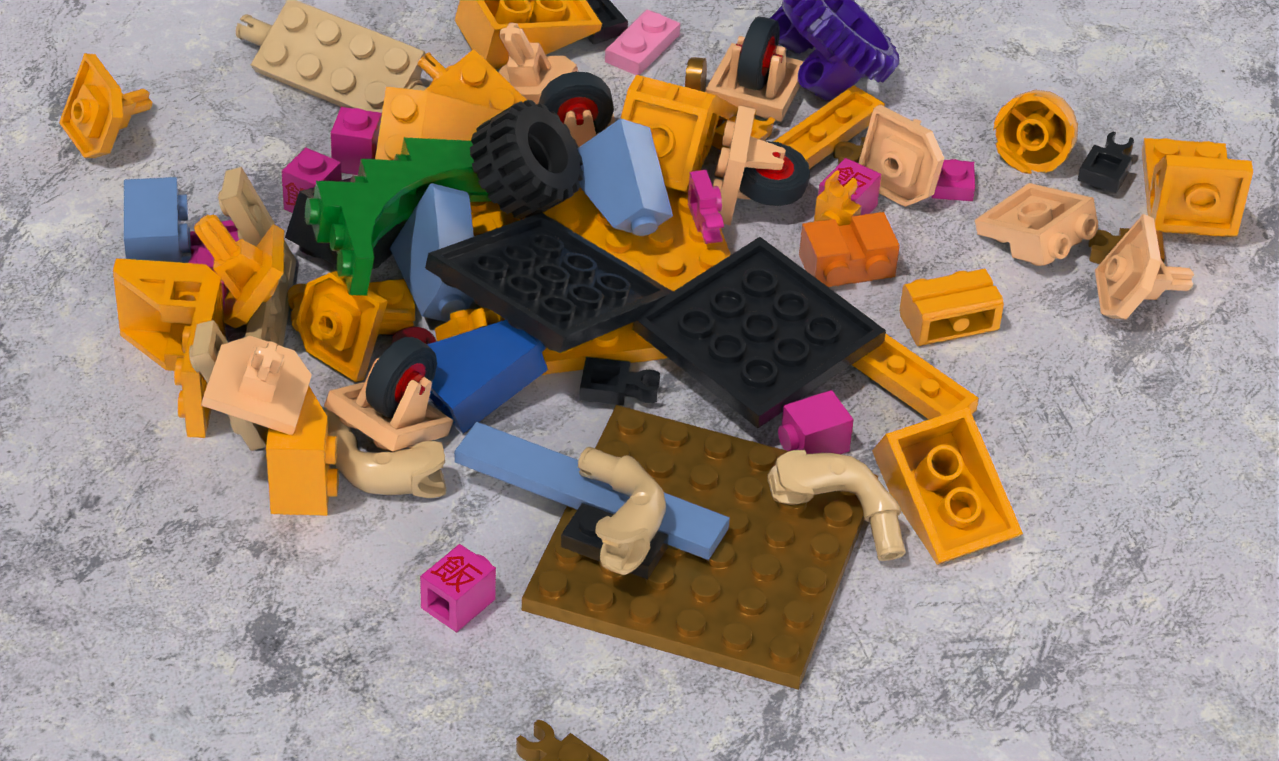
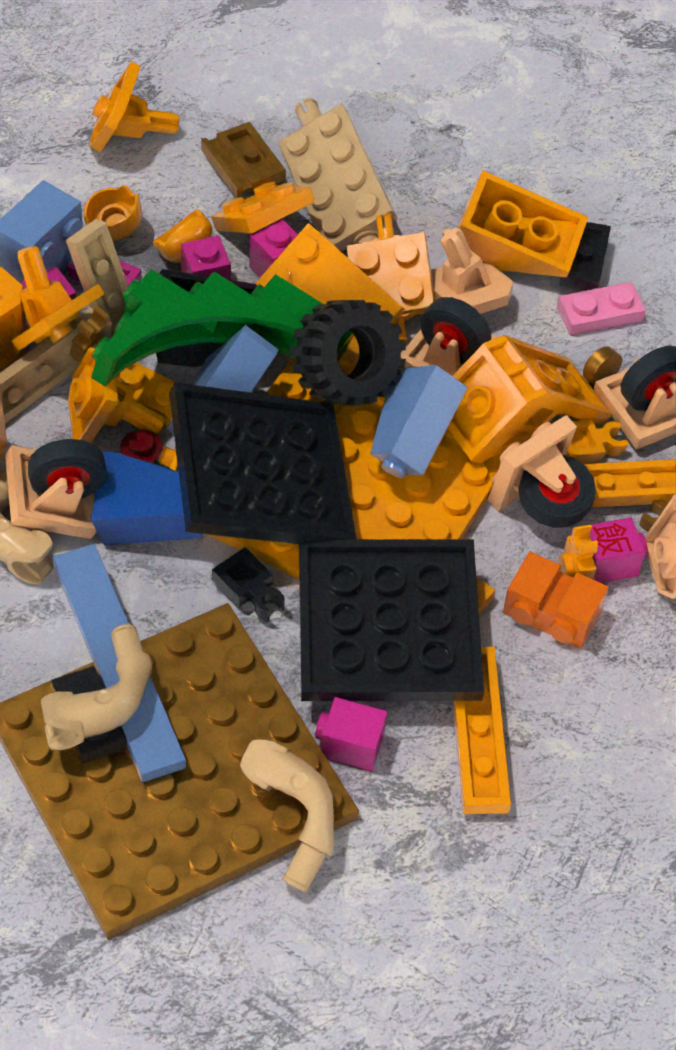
camera: 40 degrees right, 10 degrees up
(192, 179) = (116, 207): none -> light orange hair
(239, 92) = (243, 159): none -> pearl gold plate
(265, 168) = (191, 228): none -> light orange hair
(295, 275) = (90, 333): none -> pearl gold plate
(307, 113) = (262, 209): none -> light orange plate
(704, 205) = (466, 481): dark pink plate -> none
(947, 485) = (396, 864): light orange slope -> none
(951, 306) = (583, 707): light orange brick -> none

